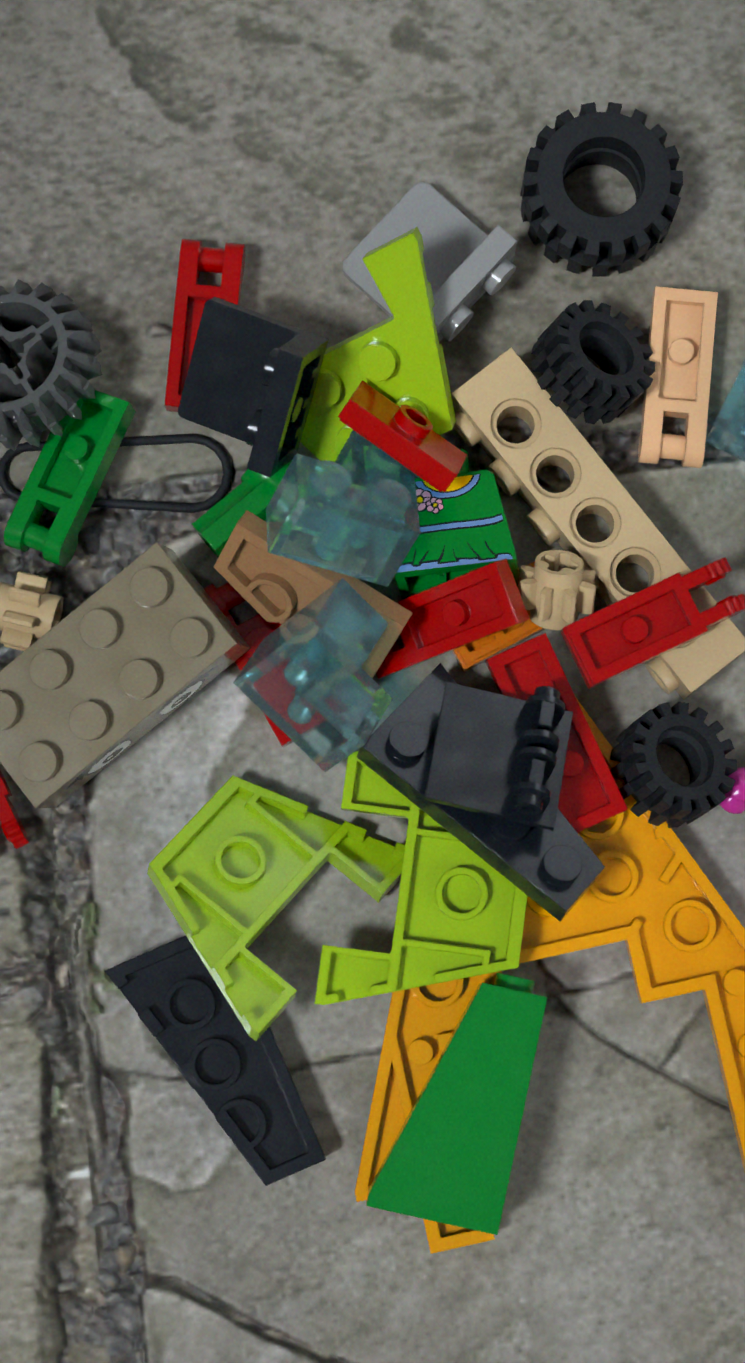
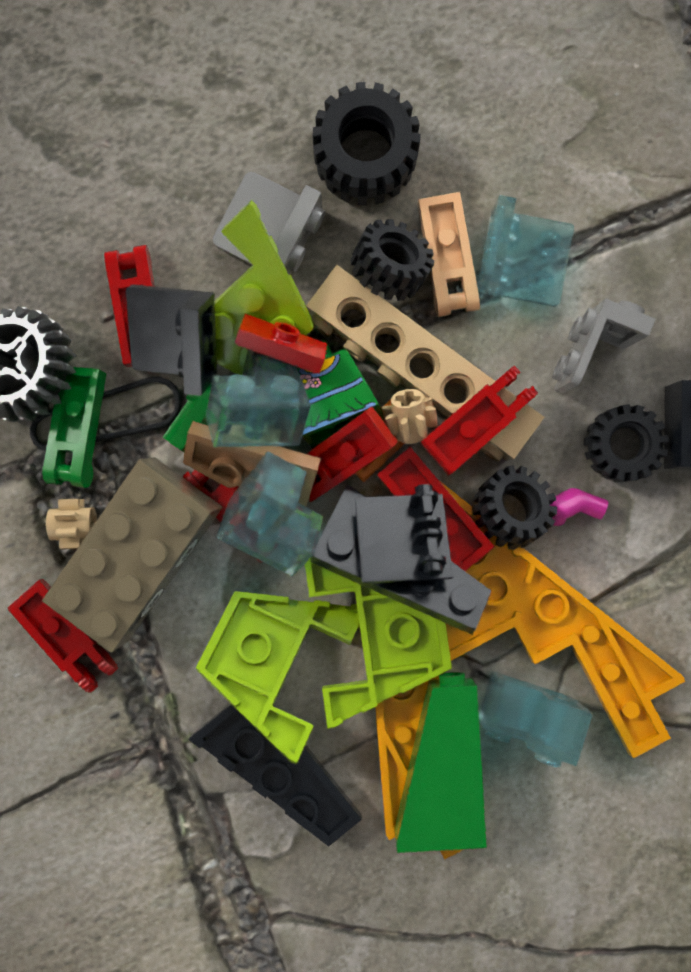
camera: 15 degrees left, 5 degrees up
(618, 1074) = (545, 719): none -> clear light blue brick

